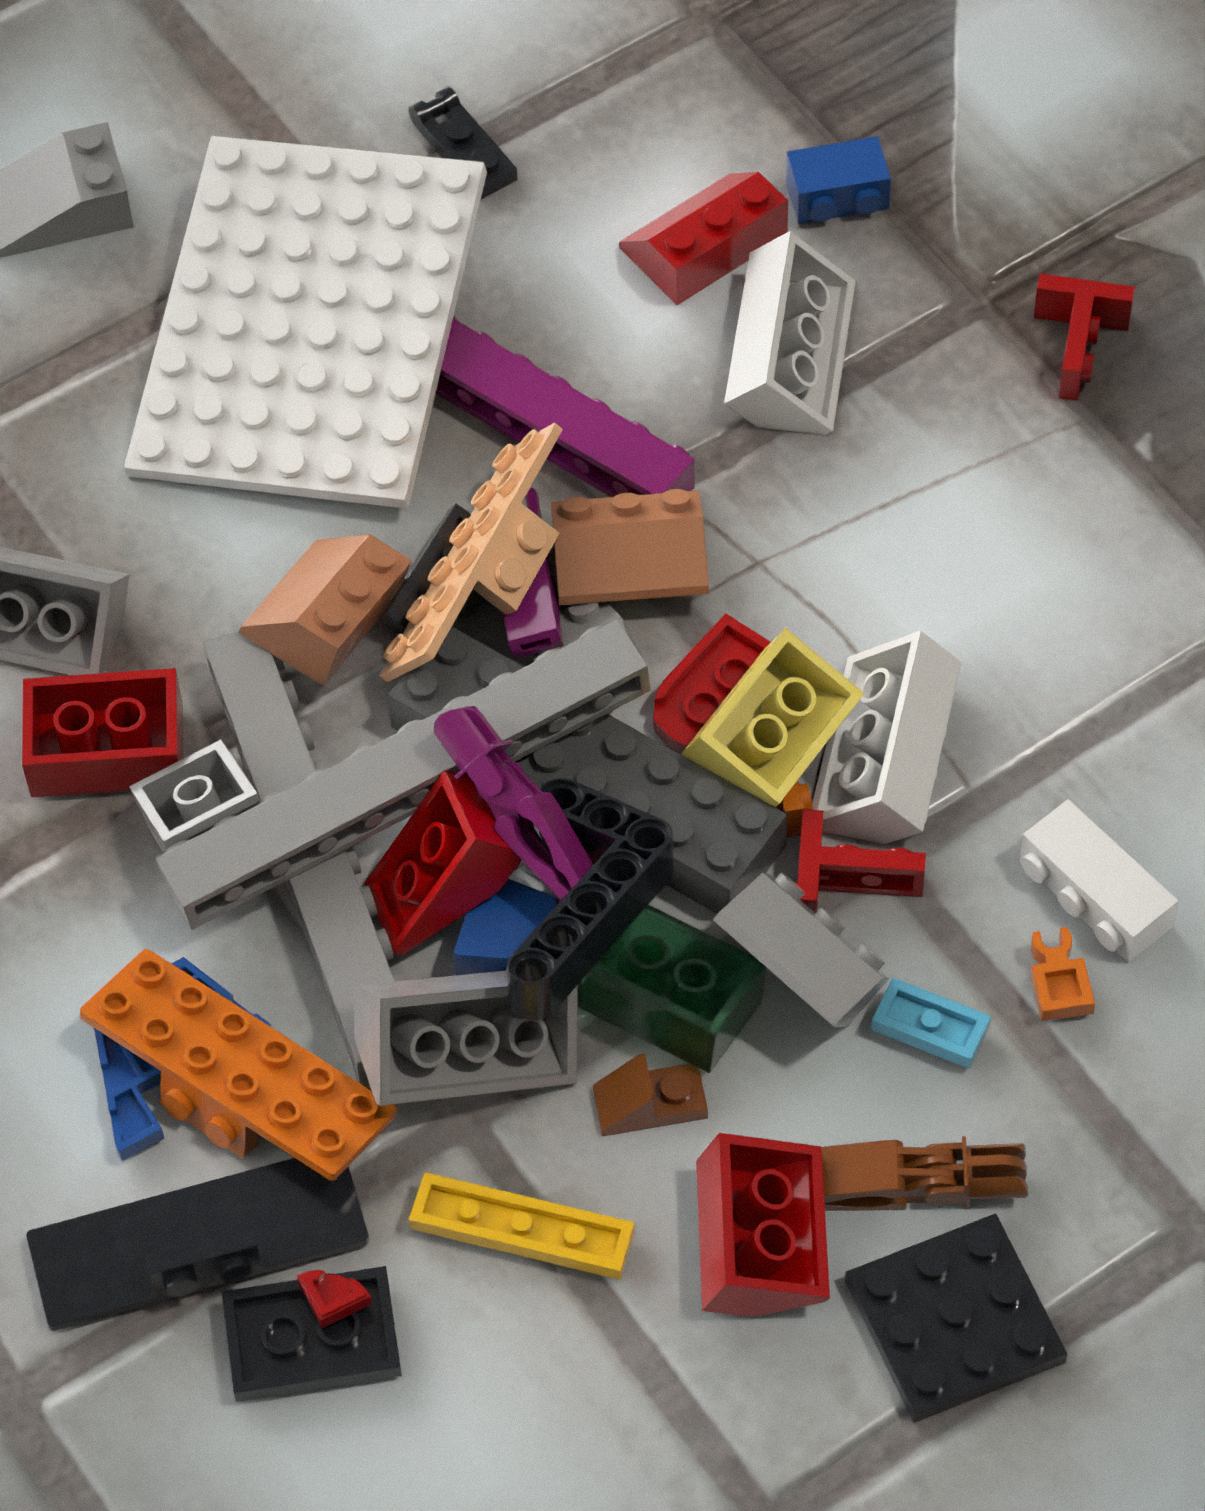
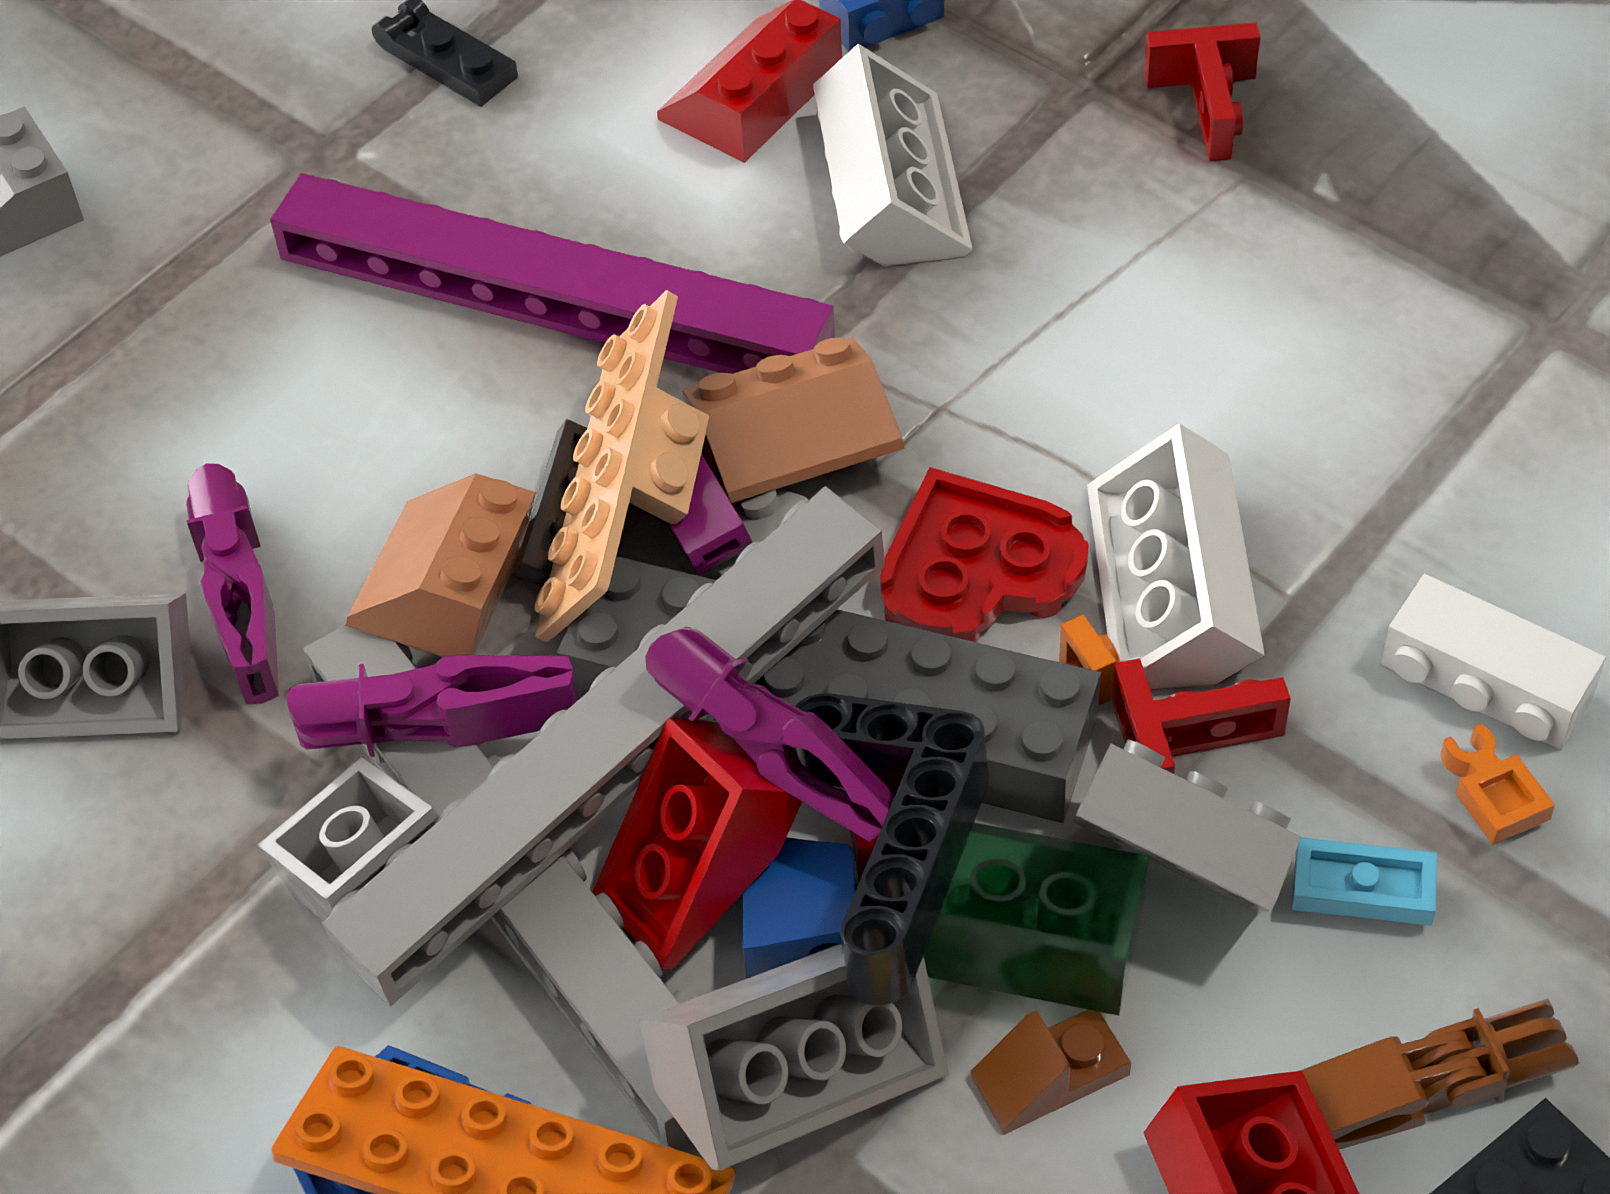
camera: 15 degrees left, 5 degrees down
(99, 730) = (198, 787): red brick -> none
(169, 533) = (225, 541): none -> magenta arm
(295, 713) = (453, 702): none -> magenta arm
(307, 321) = (324, 267): white plate -> none
(774, 720) = (1044, 565): light yellow slope -> none

